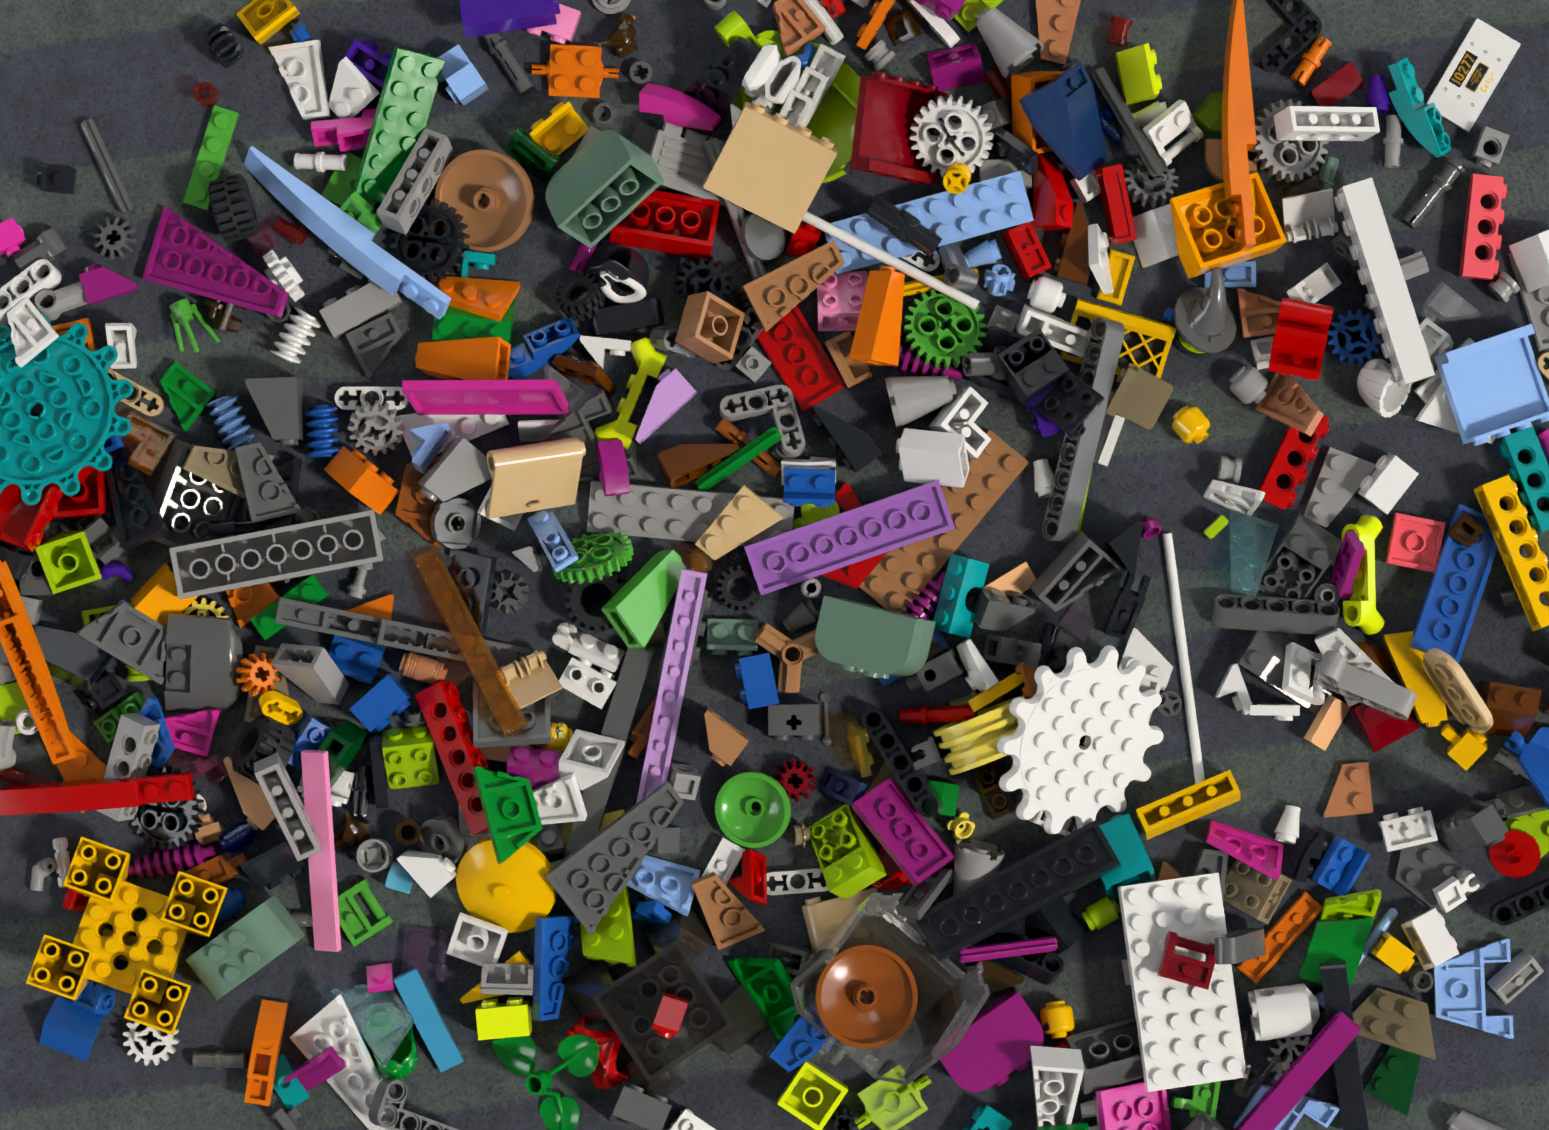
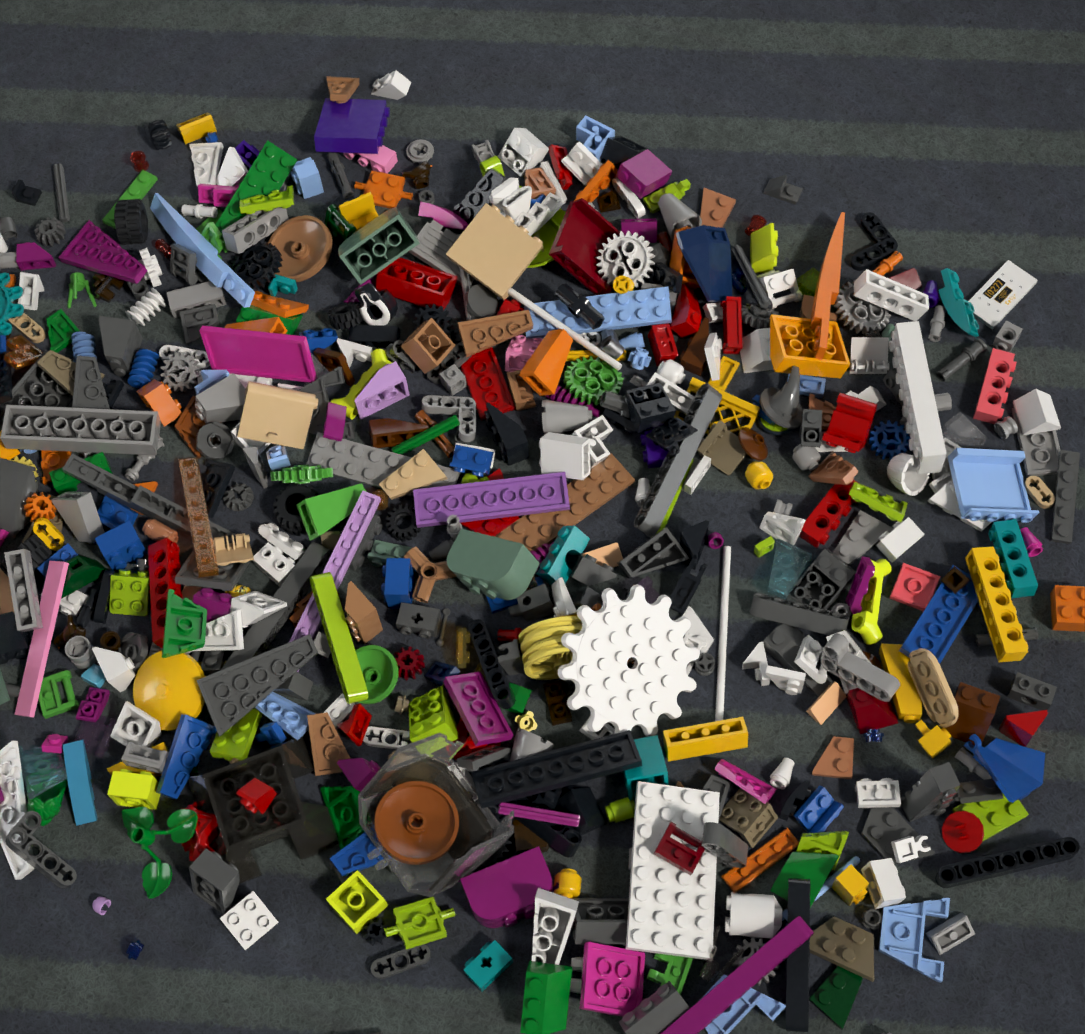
camera: 20 degrees right, 25 degrees down
(265, 238) = (150, 246): clear pink slope -> none
(330, 260) = (186, 259): none -> dark grey plate
(412, 919) = (93, 705): none -> magenta slope
(430, 141) = (268, 203): none -> lime wing
(705, 776) = (339, 638): none -> lime beam
(778, 944) = (358, 771): none -> magenta slope
(1175, 381) = (753, 444): none -> reddish brown dish
(1249, 351) = (811, 428): none -> dark grey slope
(1360, 440) = (884, 504): none -> lime wing
(1391, 754) = (873, 735): none -> clear blue plate

